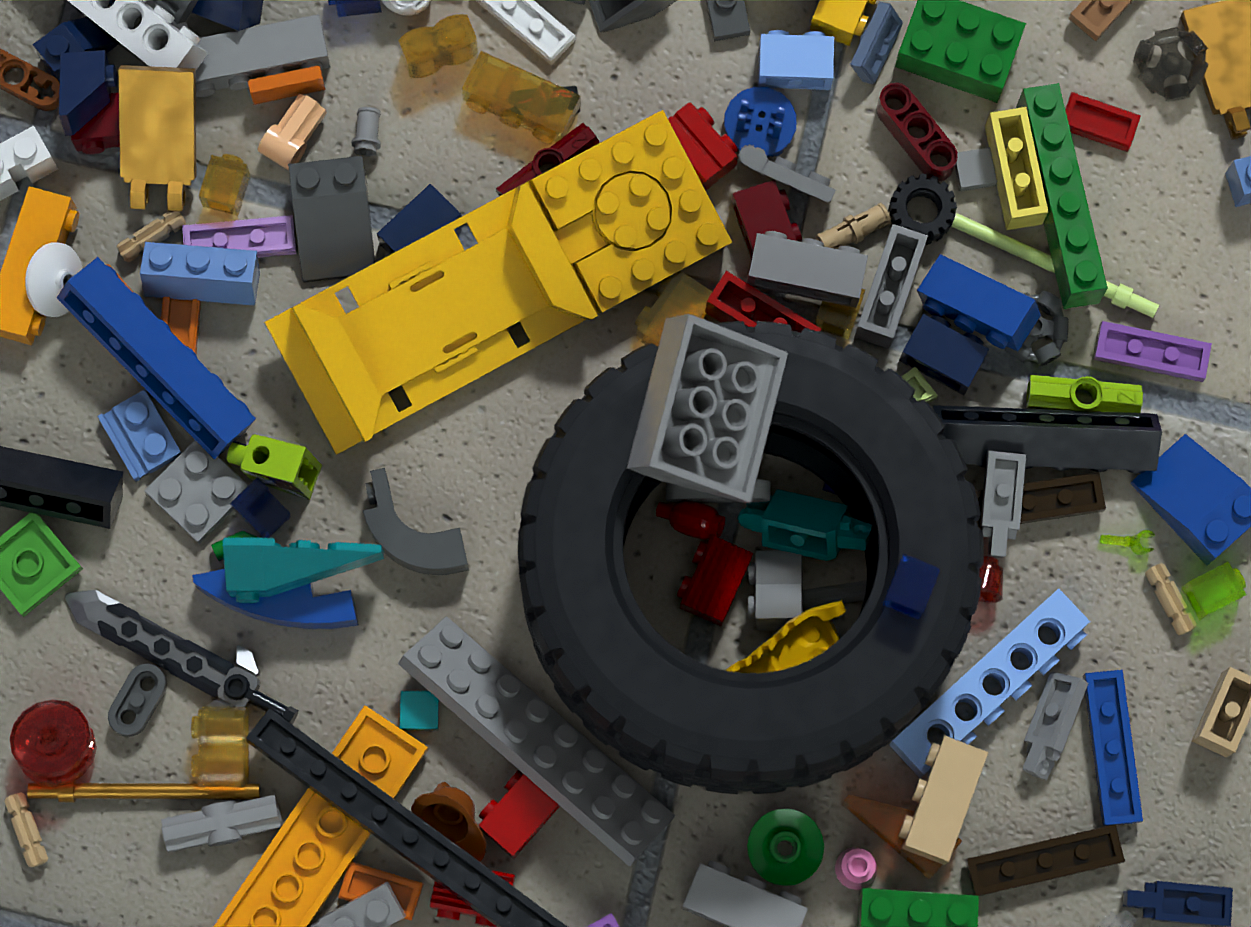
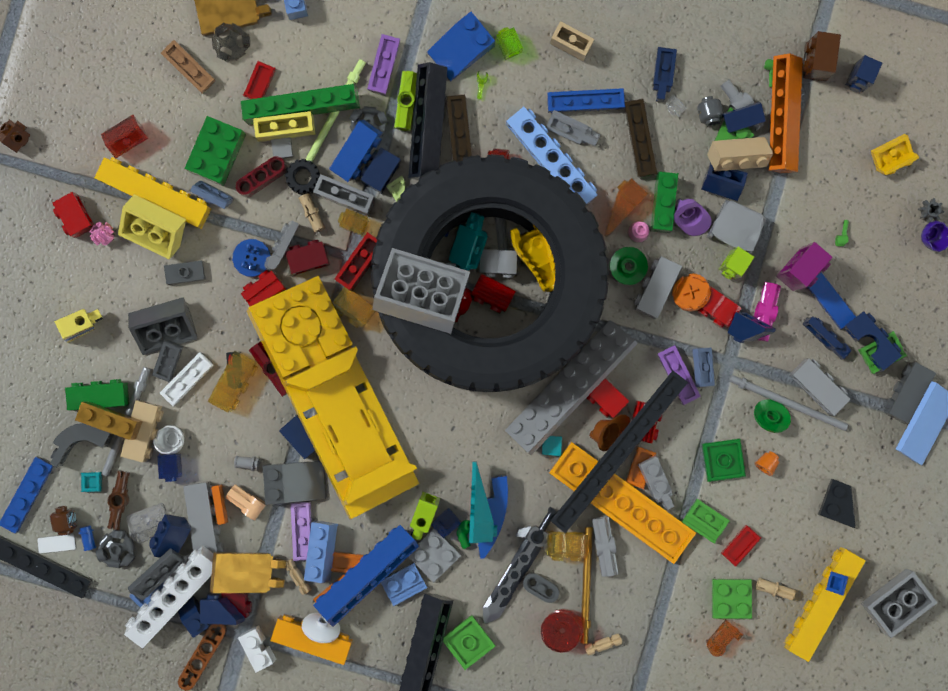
camera: 85 degrees left, 10 degrees up
(225, 184) = (272, 537): clear yellow brick -> none
(418, 551) = (471, 444): dark grey arch -> none
(430, 48) = (201, 418): clear yellow brick -> none
(796, 60) = (219, 237): light blue brick -> none
(807, 269) = (335, 237): light grey brick -> none
(911, 586) = (518, 191): clear blue panel -> none
(942, 799) = (612, 185): tan brick -> none
(1002, 499) = (459, 145): light grey hinge -> none
(1170, 599) = (511, 65): tan axle -> none

